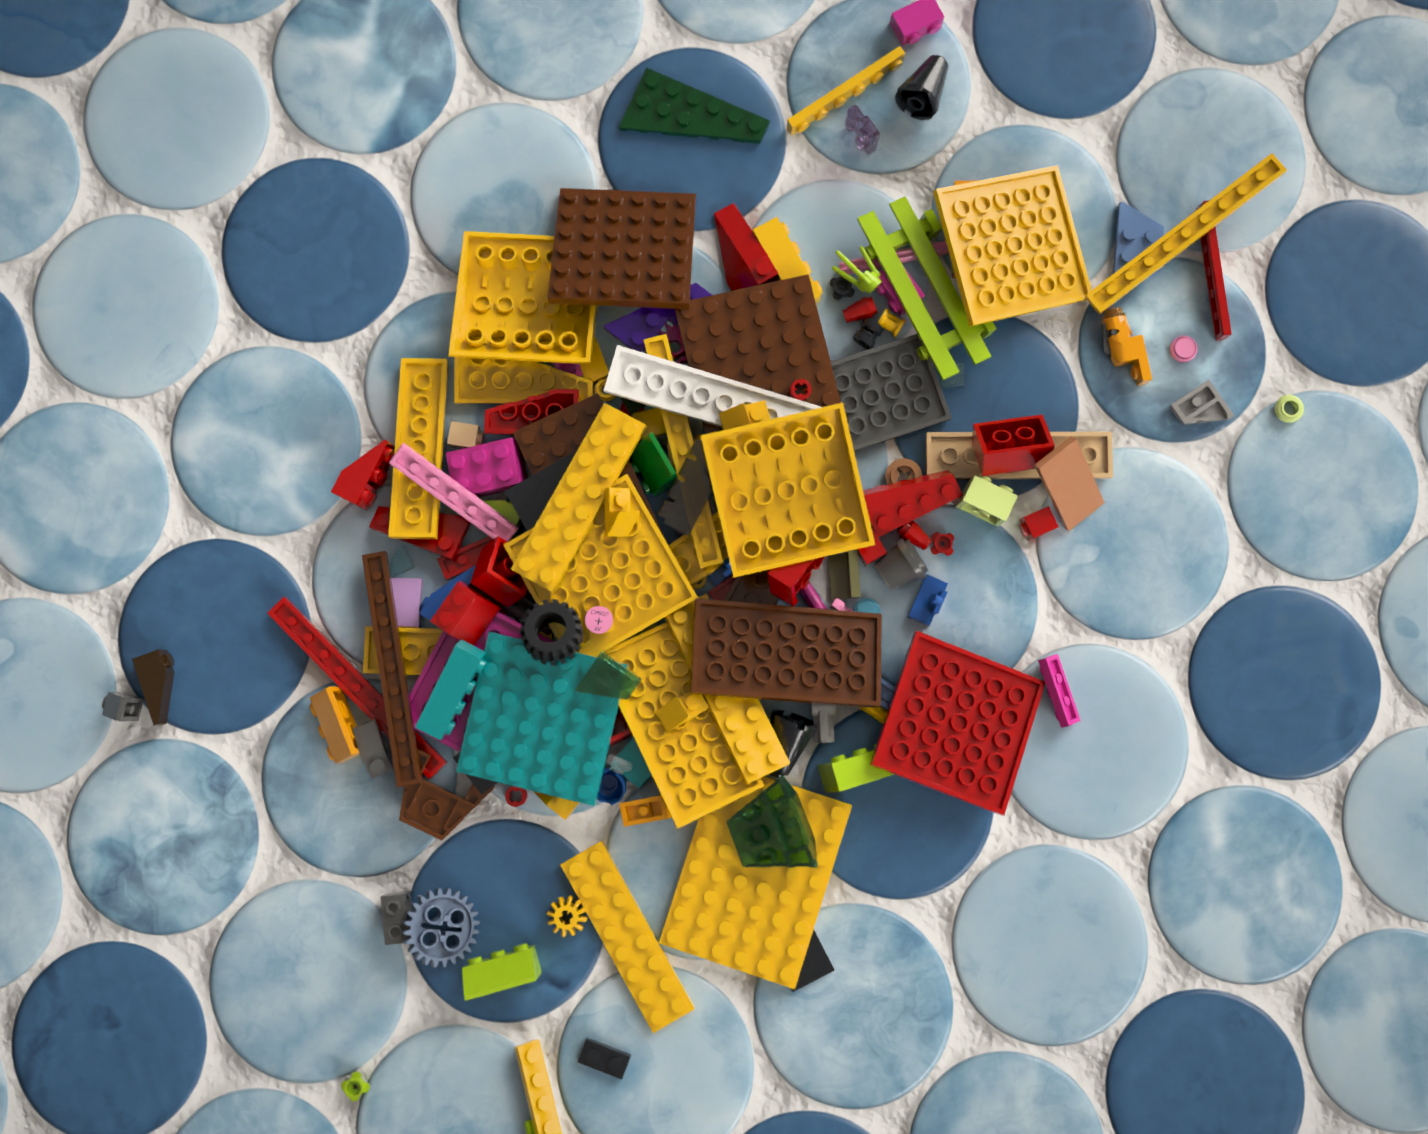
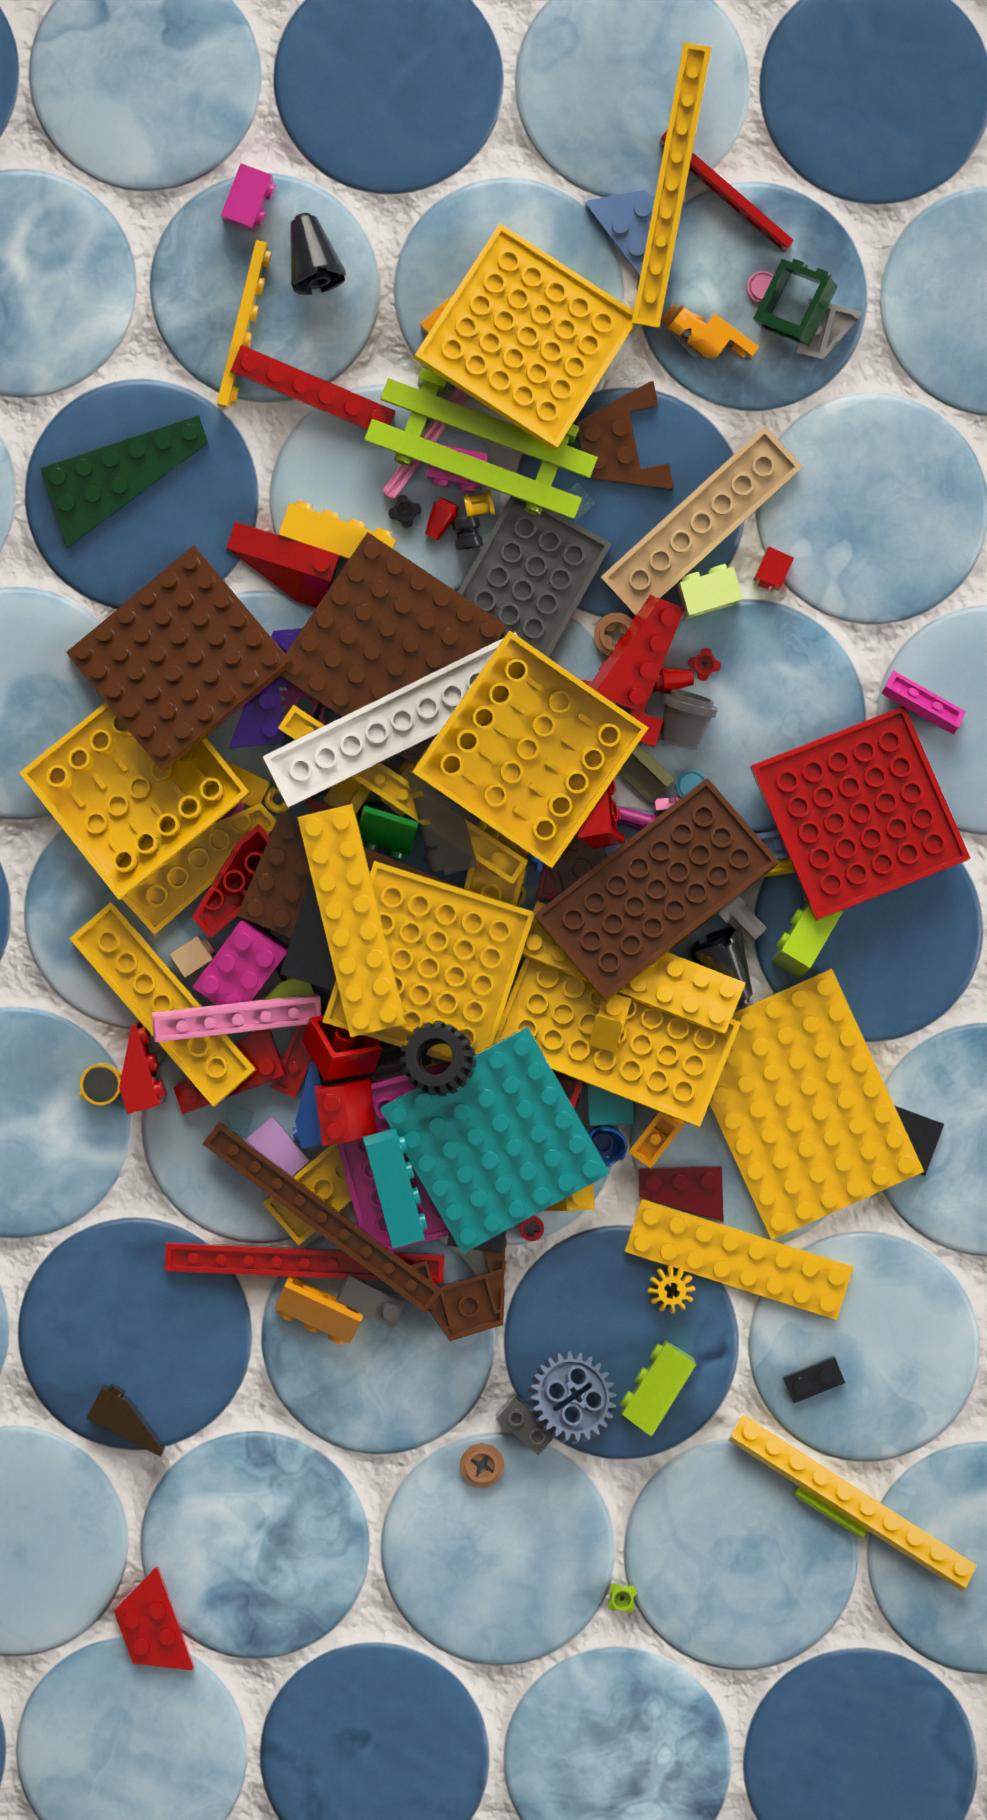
camera: 50 degrees left, 5 degrees up
(51, 829) = (152, 1626): none -> red wing
(122, 706) = (114, 1467): dark grey slope -> none
(334, 460) = (100, 1083): none -> pearl dark grey piece
(342, 928) = (486, 1477): none -> medium nougat gear
(598, 619) = (466, 1010): bright pink piece -> none
(609, 679) = (524, 1053): clear green wing -> none
(618, 517) = (402, 906): yellow slope -> none
(619, 764) = (598, 1119): clear plate -> none
(635, 860) = (686, 1188): none -> dark red wing
(744, 415) = (432, 717): yellow slope -> none
(774, 830) = (783, 1052): clear green wedge -> none
(799, 382) = (463, 652): red bush -> none
(850, 160) = (309, 389): none -> red plate
(866, 132) = (299, 352): clear purple plate -> none
(866, 281) = (425, 488): lime plant -> none
(928, 600) = (737, 726): blue piece -> none
(1009, 355) = (611, 439): none -> reddish brown wing
(1011, 444) = (688, 523): red brick -> none
(1069, 483) = (769, 512): nougat tile -> none
(1179, 384) = (806, 330): none -> dark green window
(1298, 408) = (905, 246): yellowish green piece -> none

